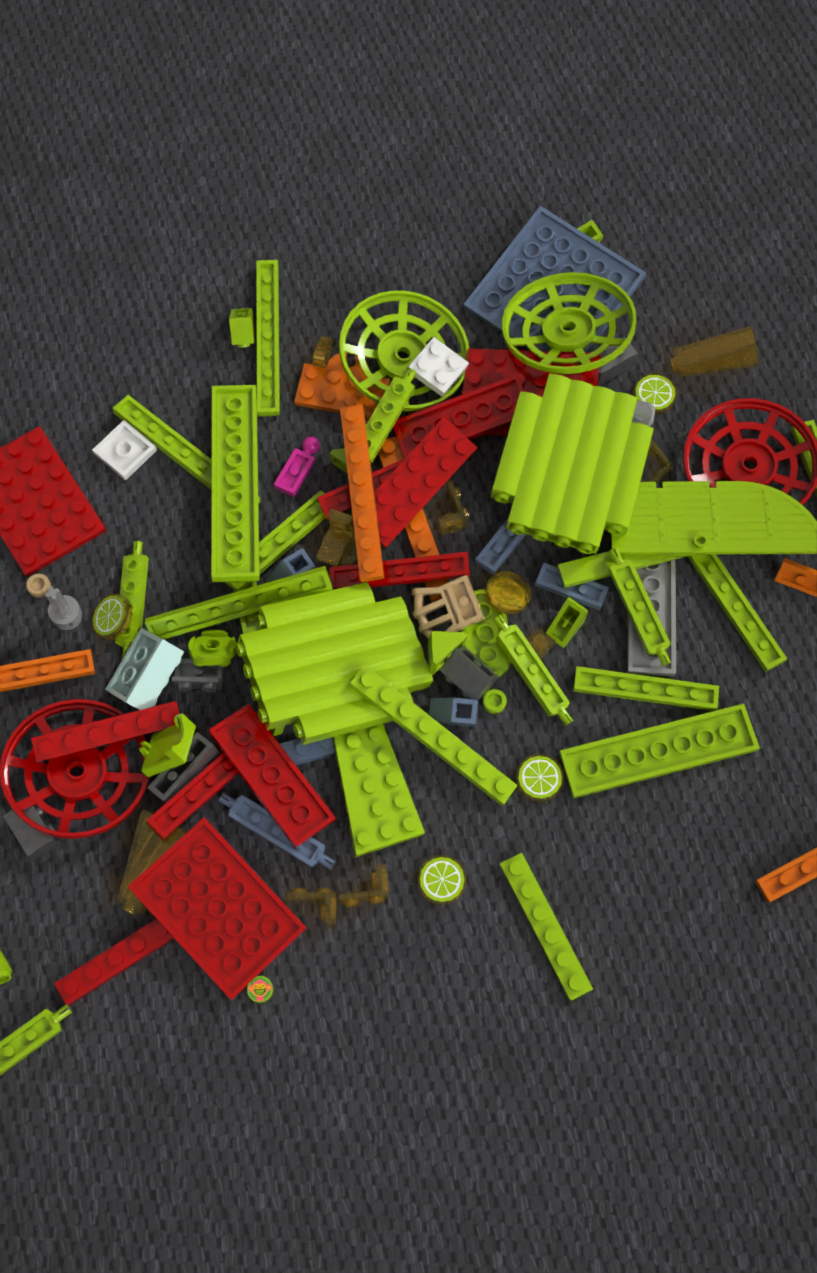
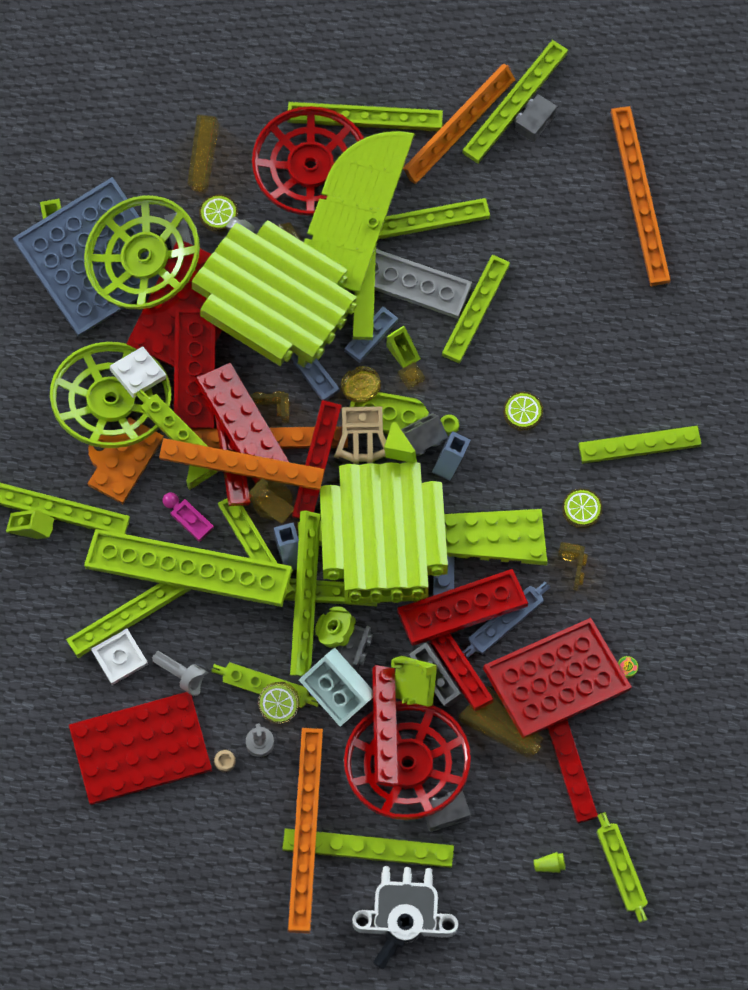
camera: 75 degrees left, 0 degrees up
(117, 520) = (190, 678): none -> light grey piece
(322, 352) = (84, 463): clear yellow beam -> none
(328, 911) = (581, 596): clear yellow bracket -> none
(433, 735) = (467, 475): lime plate -> none
(532, 670) = (435, 386): lime plate -> none
(639, 607) = (411, 287): lime plate -> none
(658, 750) = (529, 317): lime plate -> none

